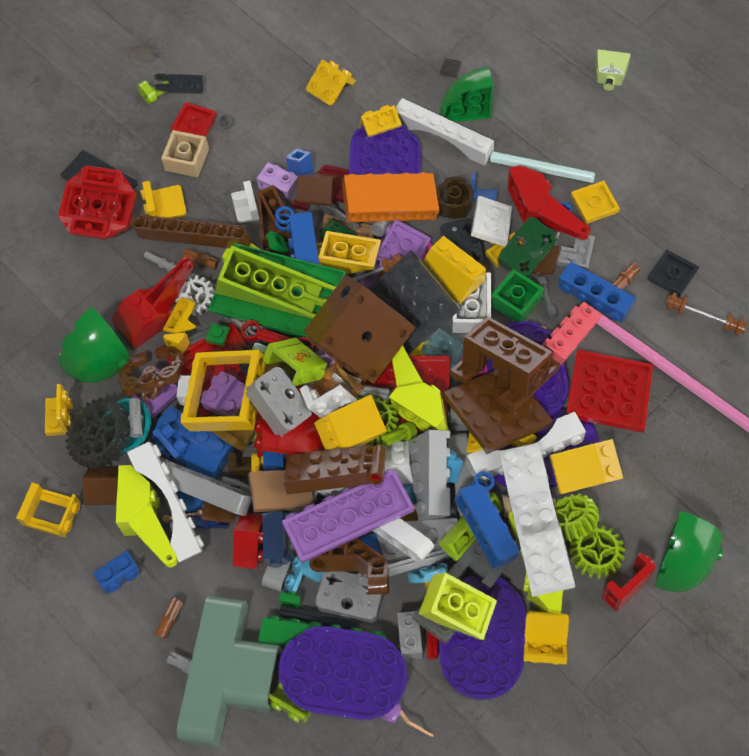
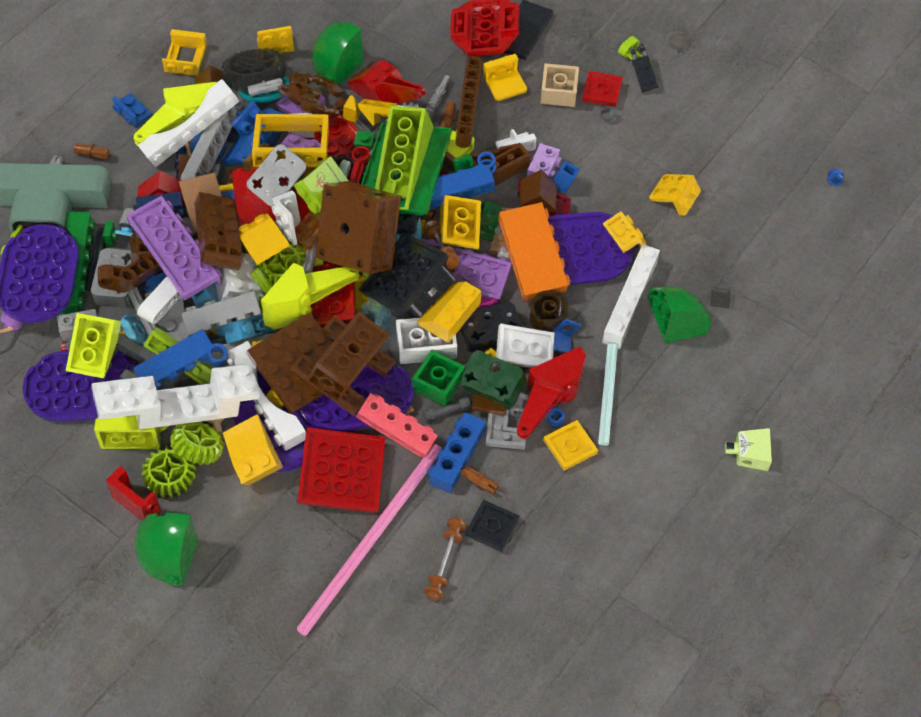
camera: 75 degrees right, 5 degrees down
(546, 637) = (75, 434): yellow bracket -> none

